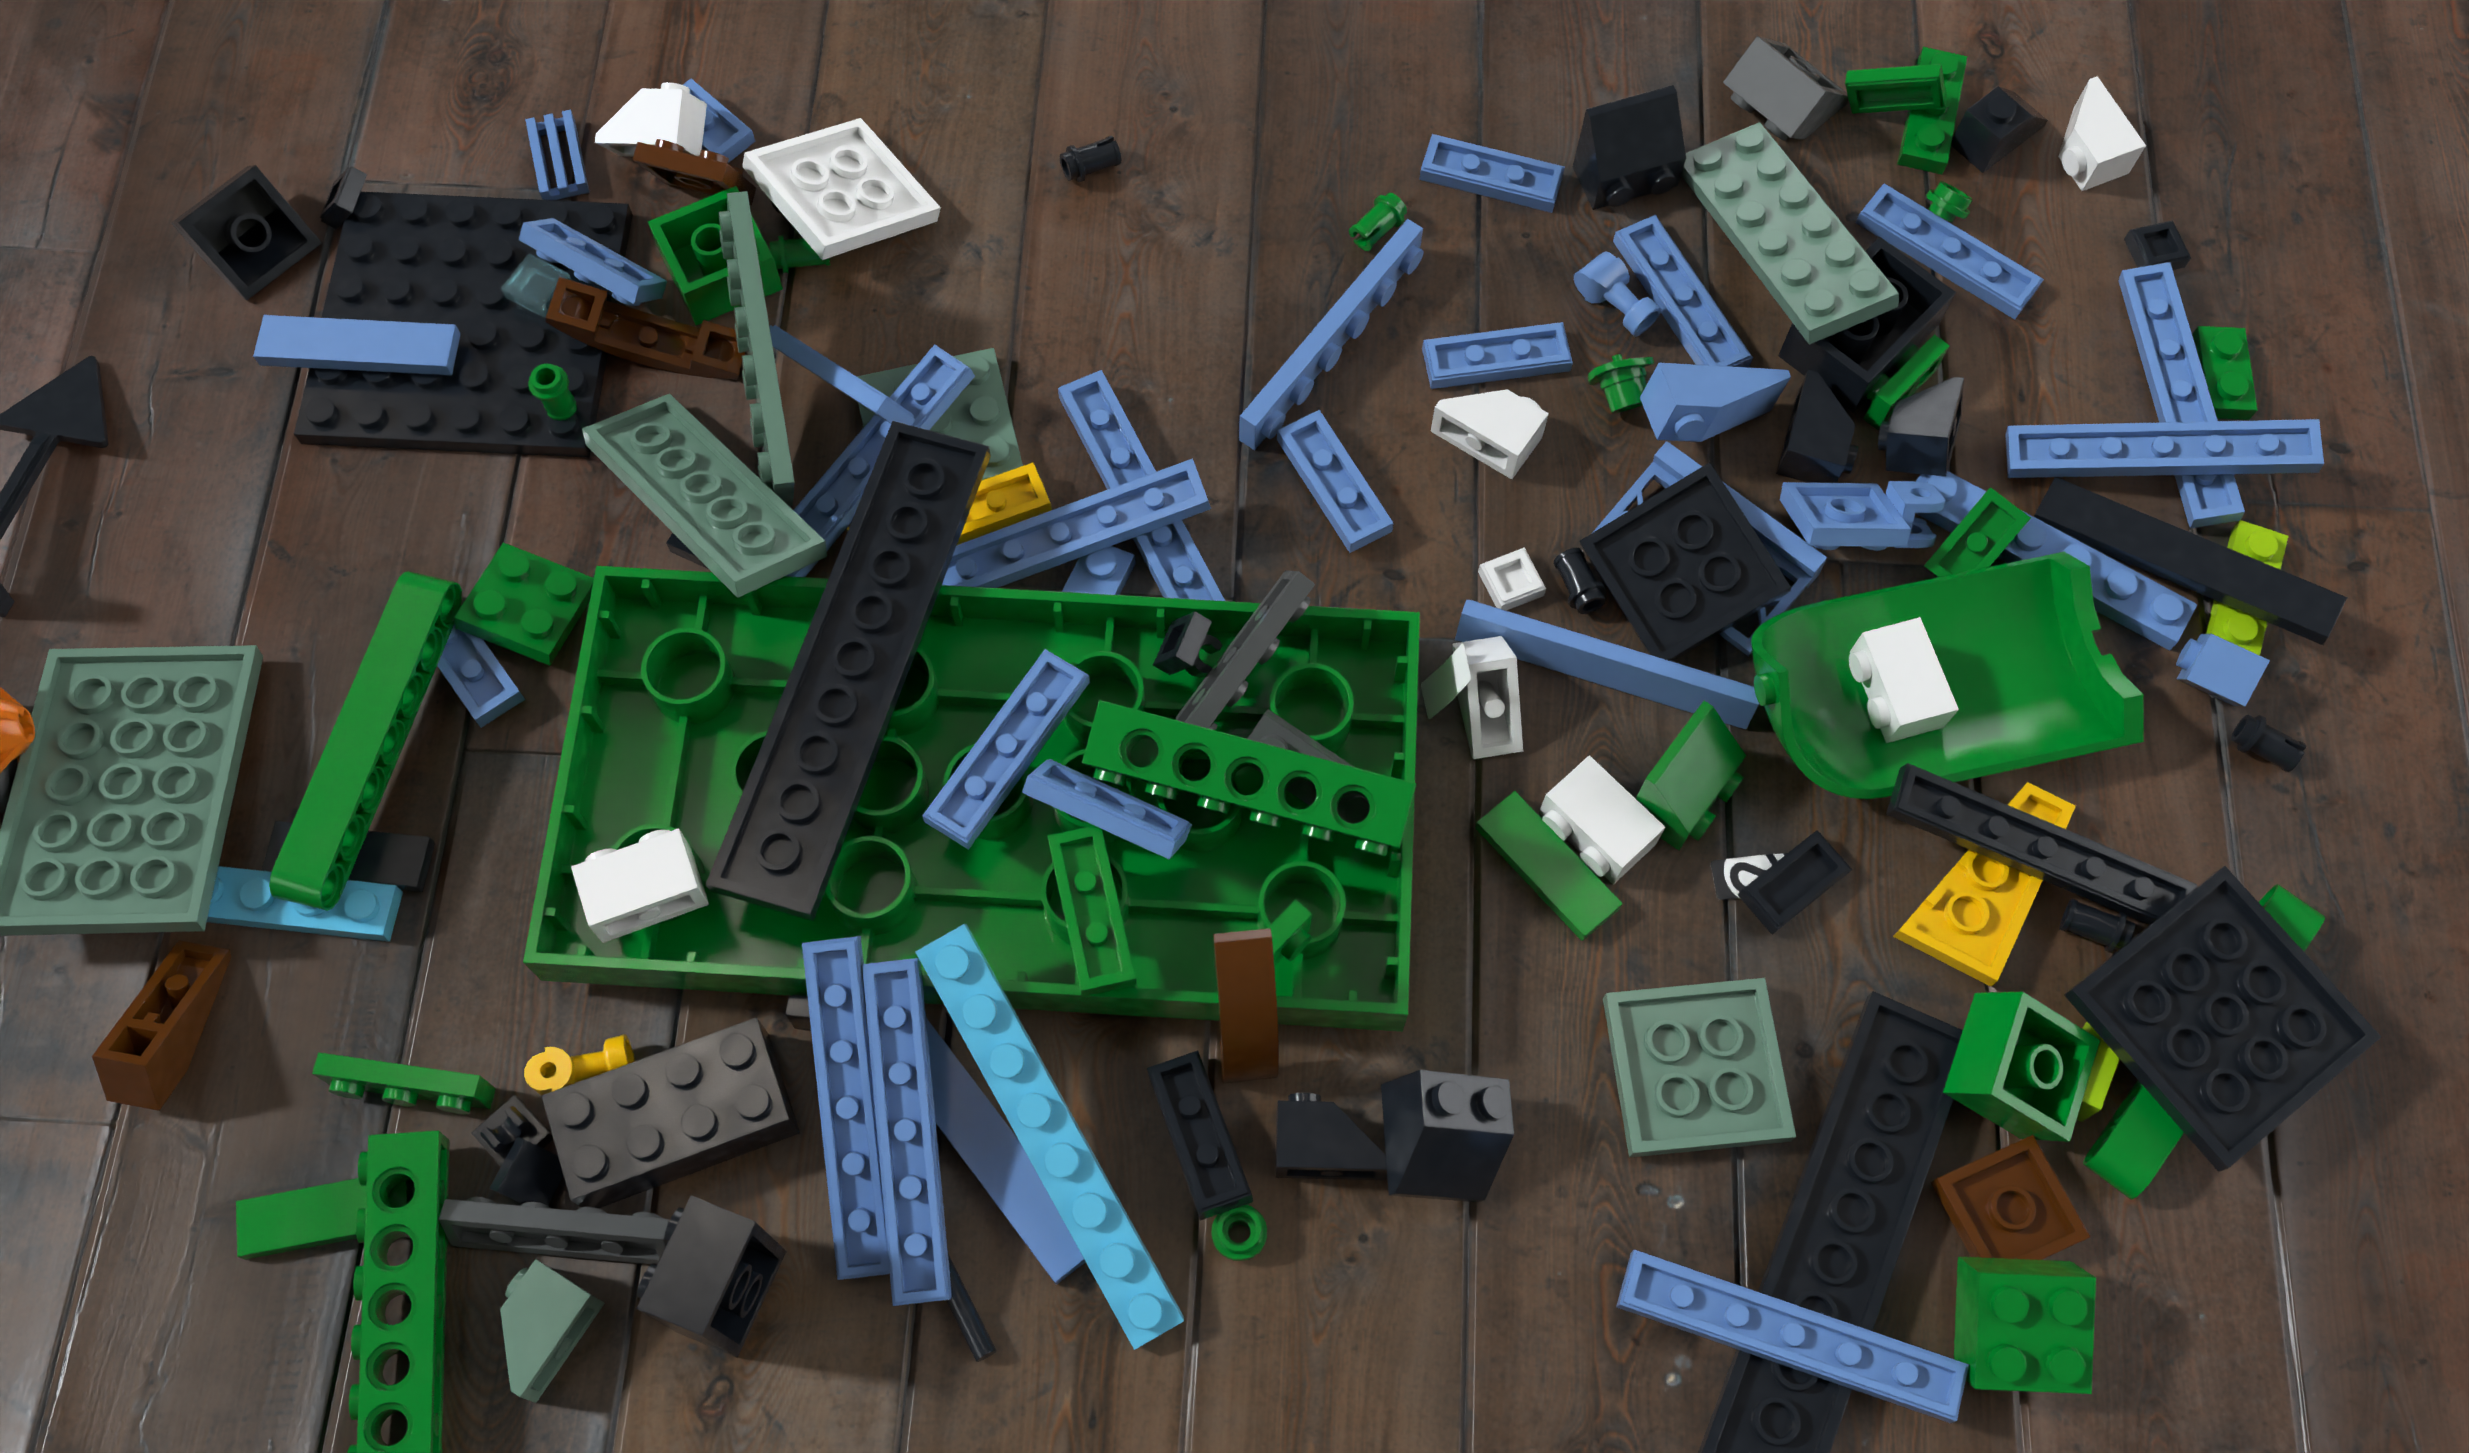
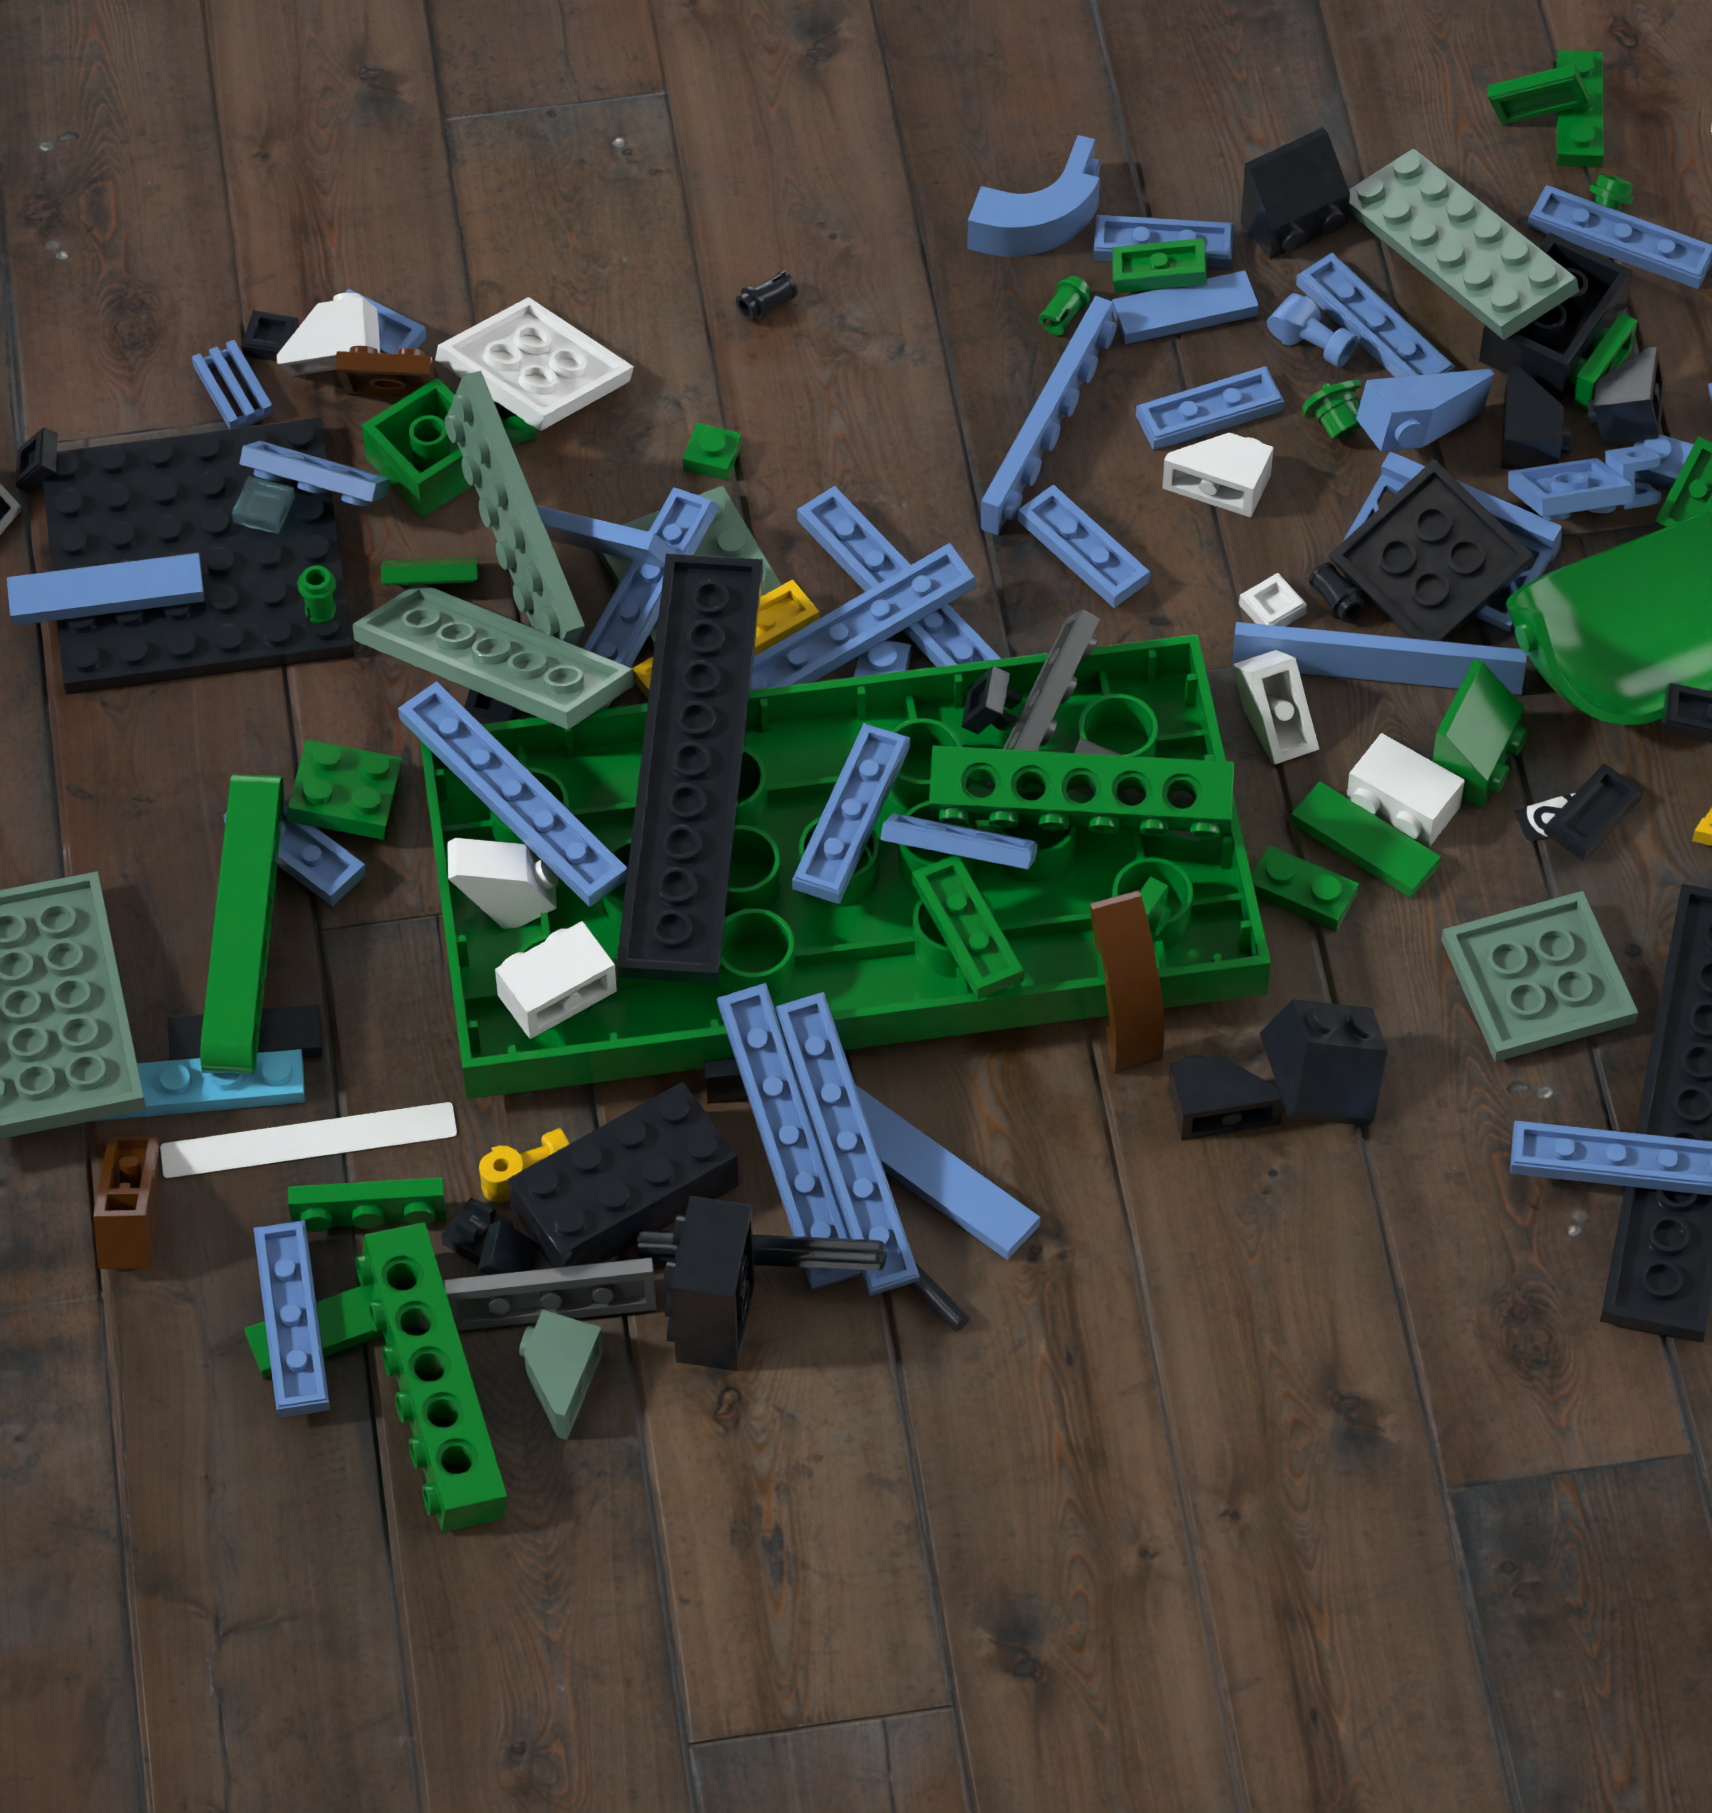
camera: 10 degrees left, 10 degrees down
(282, 1205) = (291, 1319): none -> medium blue tile
(379, 986) = (308, 1140): none -> white sticker
(601, 107) = (267, 334): none -> black tile
(632, 746) = (502, 879): none -> white slope
(641, 336) = (381, 536): reddish brown slope -> none
(663, 660) = (513, 794): none -> medium blue plate
(682, 383) = (430, 571): none -> green tile
(801, 1234) = (784, 1251): none -> black axle
(995, 309) = (712, 451): none -> green plate
(1050, 1136) = (975, 1124): medium azure plate -> none
(1199, 1135) = (1105, 1111): black tile -> none
(1246, 1216) = (1161, 1171): green plate -> none
(1376, 129) = (1040, 220): none -> medium blue arch
(1446, 682) = (1235, 696): white sticker -> none
(1470, 908) = (1303, 888): none -> green plate
(1480, 198) = (1159, 265): none -> green plate
(1497, 245) = (1184, 308): none -> medium blue tile
(1784, 89) = (1430, 113): dark grey slope -> none
(1902, 680) = (1653, 619): white brick -> none
(1995, 127) = (1643, 114): black slope -> none

